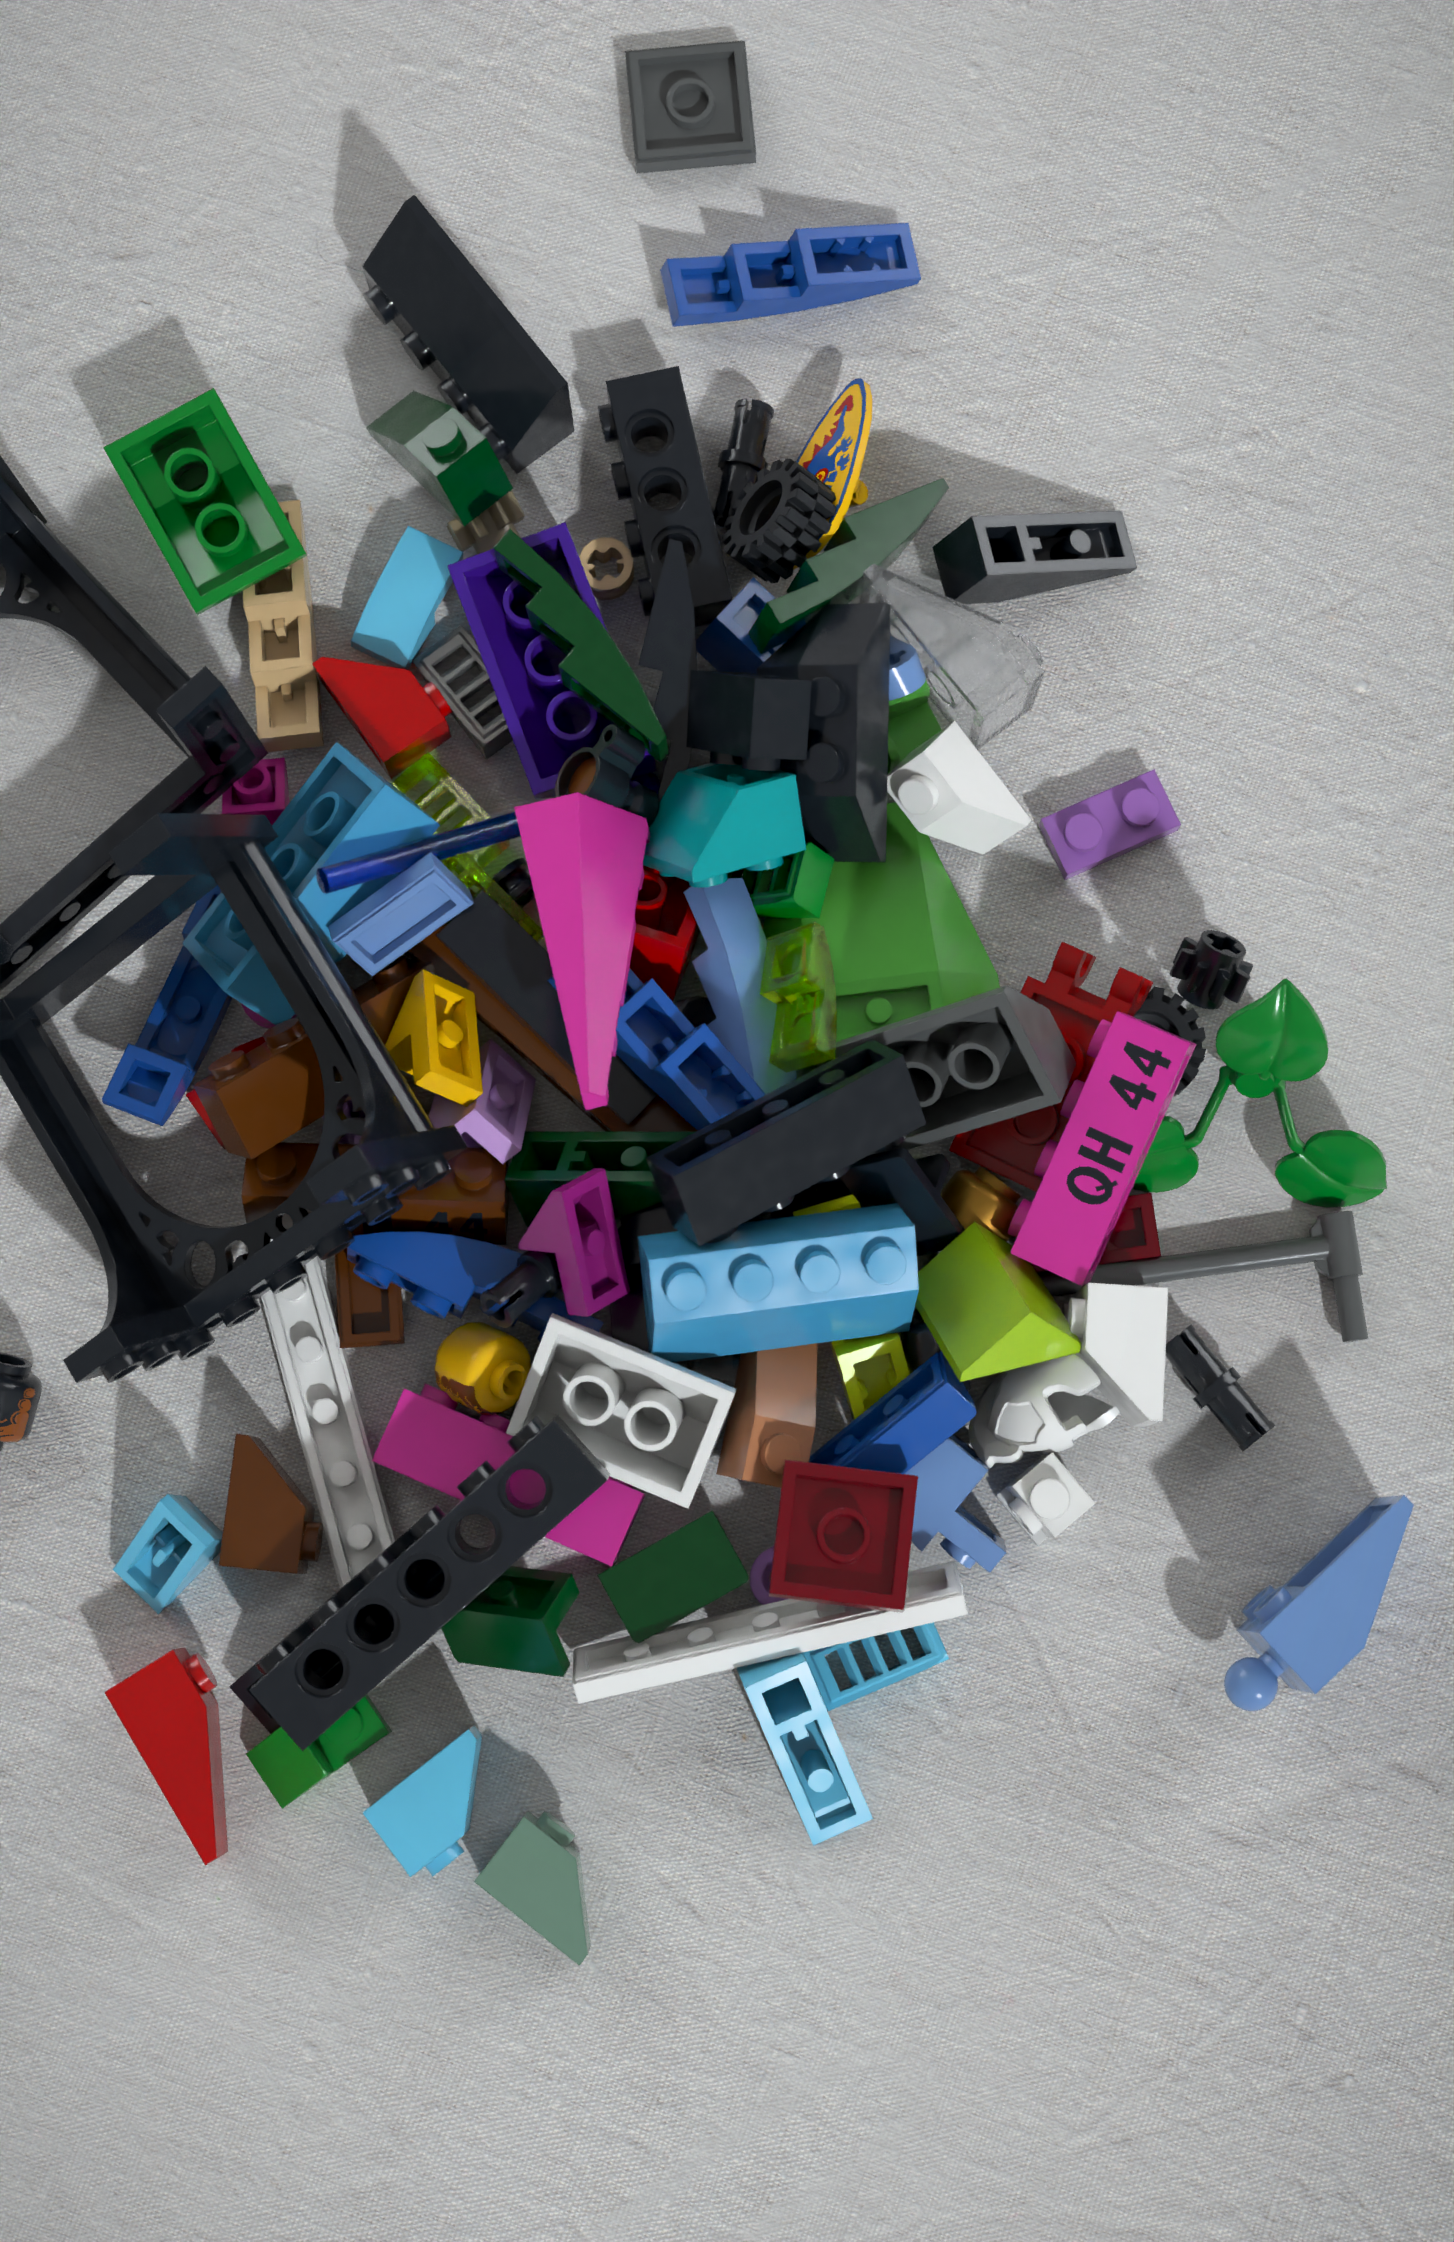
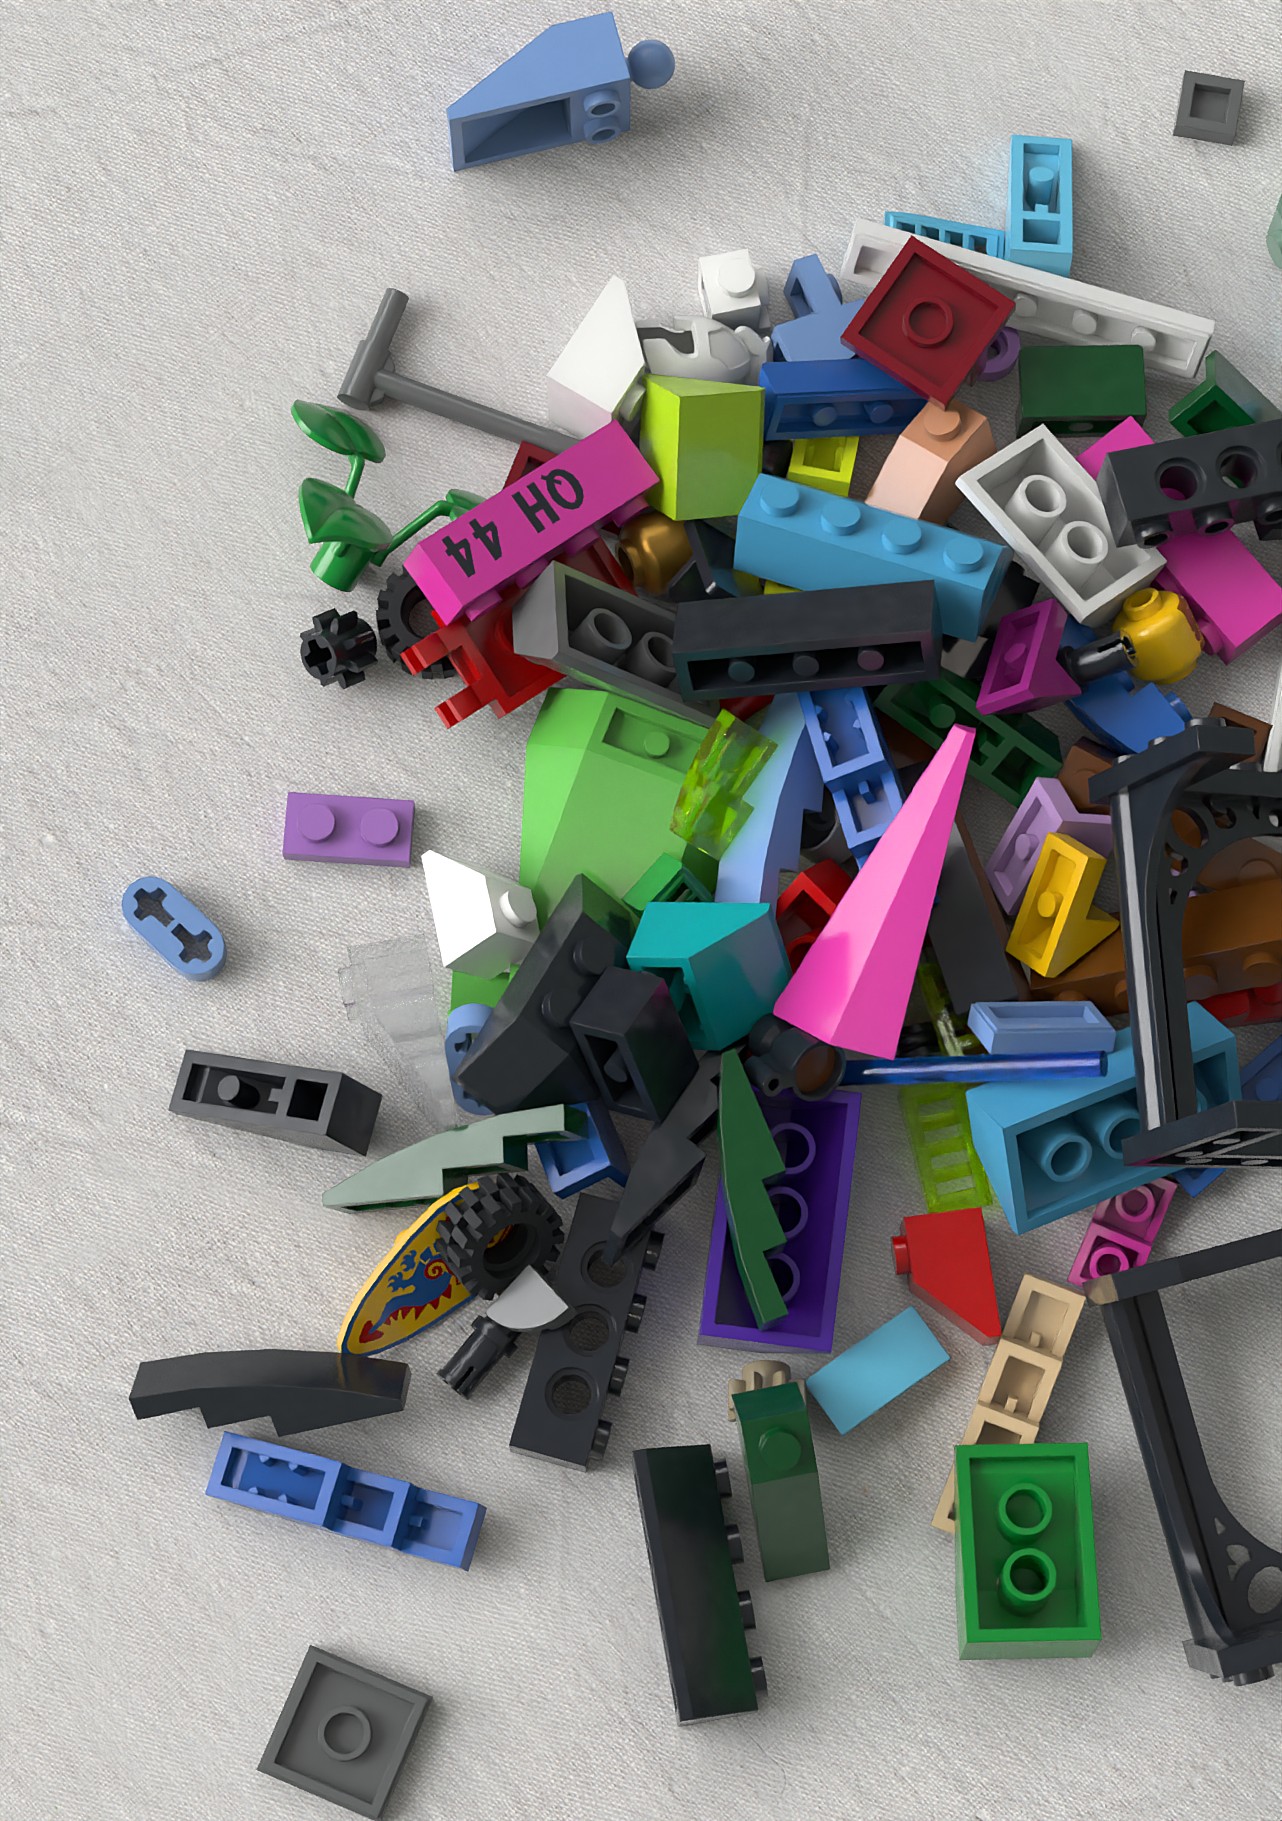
camera: 155 degrees left, 5 degrees down
(494, 734) = (889, 1304): dark grey slope -> none
(603, 550) = (682, 1286): tan bush -> none
(697, 1951) = (1208, 108): none -> dark grey tile
(721, 482) = (531, 1304): none -> tile
(900, 322) = (290, 1386): none -> black slope
(1210, 646) = (164, 939): none -> medium blue beam
(1217, 1388) = (536, 310): black pin -> none

